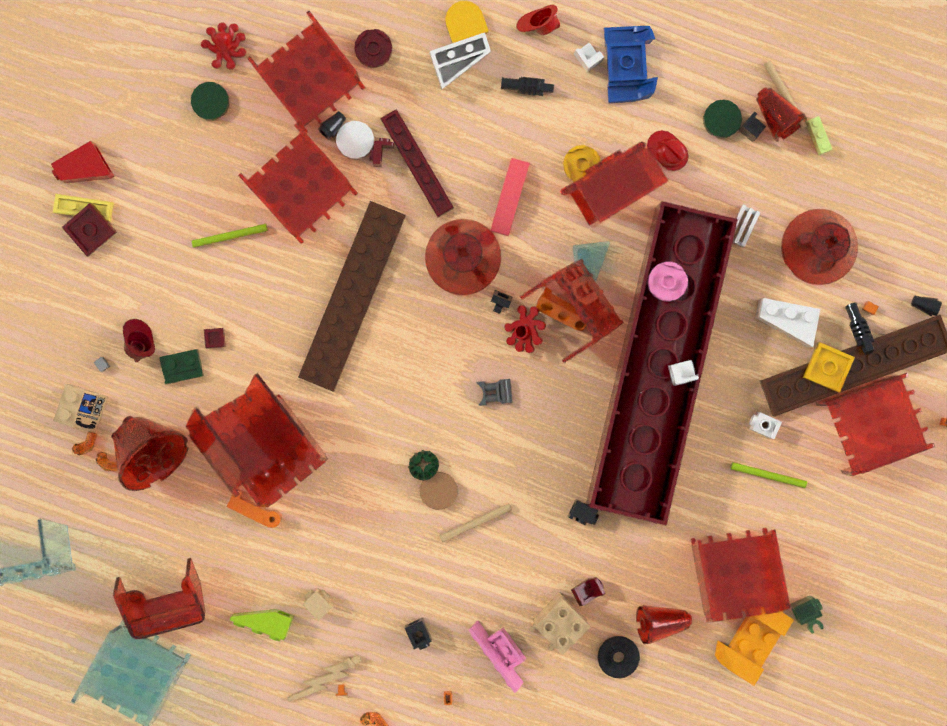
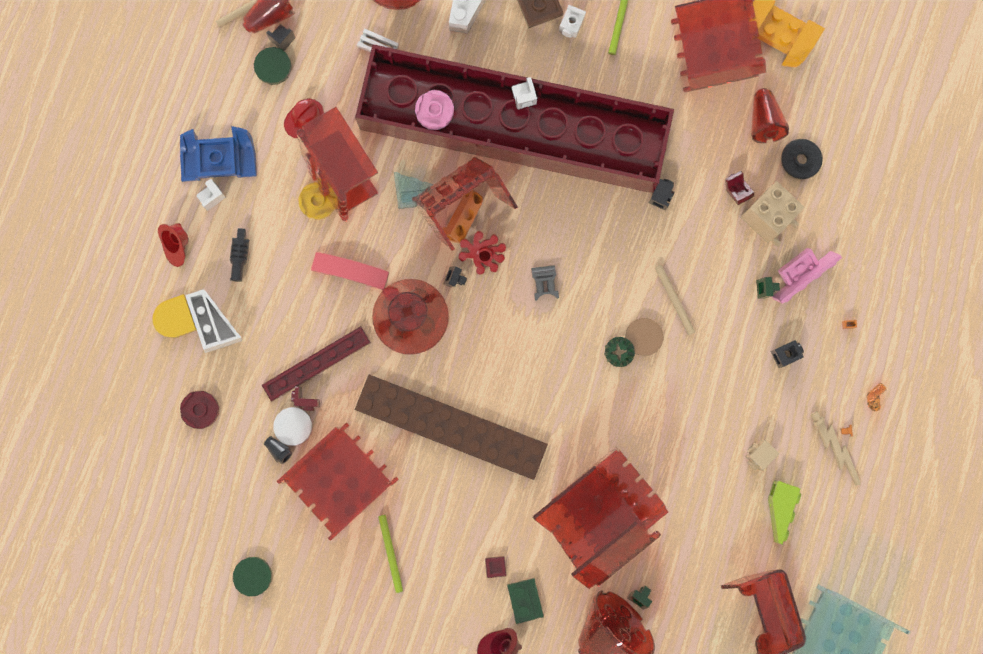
camera: 90 degrees left, 5 degrees down
(182, 480) = (640, 597): none -> dark green tile
(224, 44) = (196, 562): red animal -> none
(266, 517) = (668, 528): orange leg -> none
(309, 74) = (224, 473): clear red windscreen -> none
(485, 614) = (766, 288): none -> dark green tile

